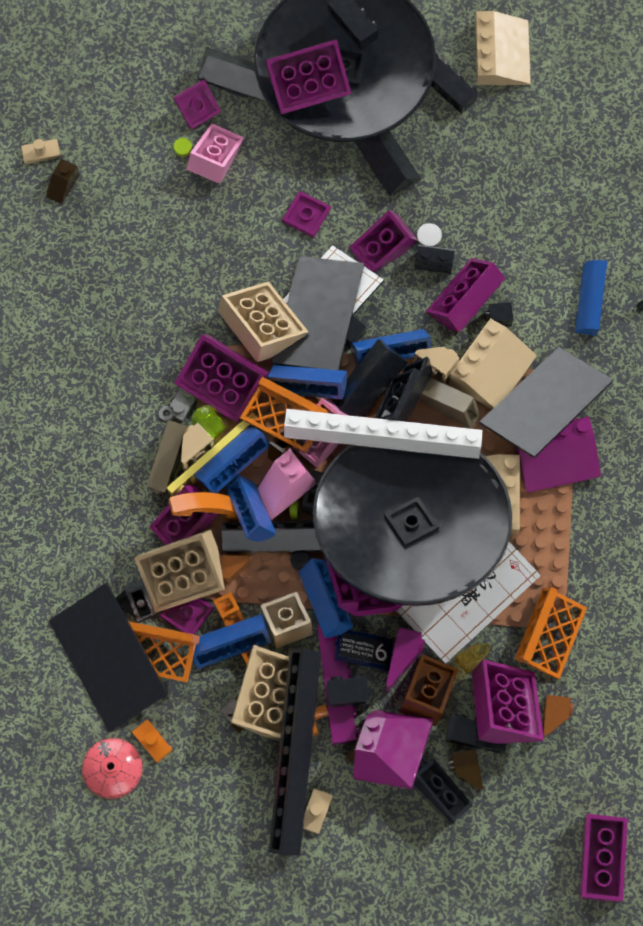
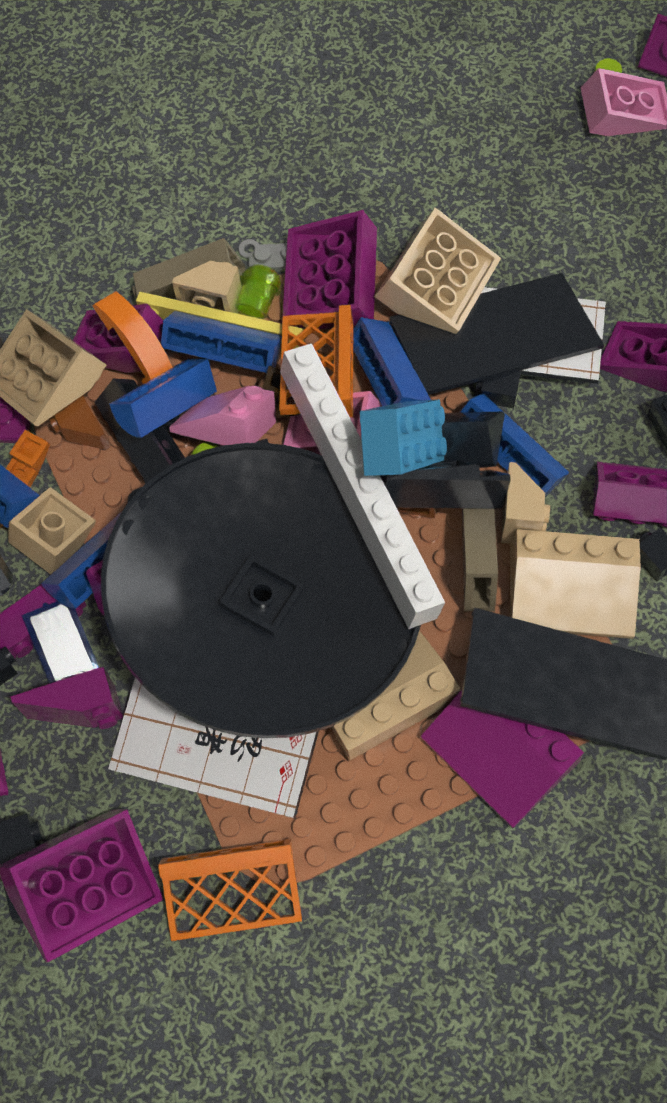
camera: 65 degrees right, 5 degrees down
(306, 214) = (625, 249): magenta tile -> none
(376, 394) = (402, 437): none -> dark azure brick
(429, 689) = (54, 766): reddish brown slope -> none
(472, 656) = (137, 799): clear yellow plate -> none
(555, 713) = (112, 963): dark orange slope -> none

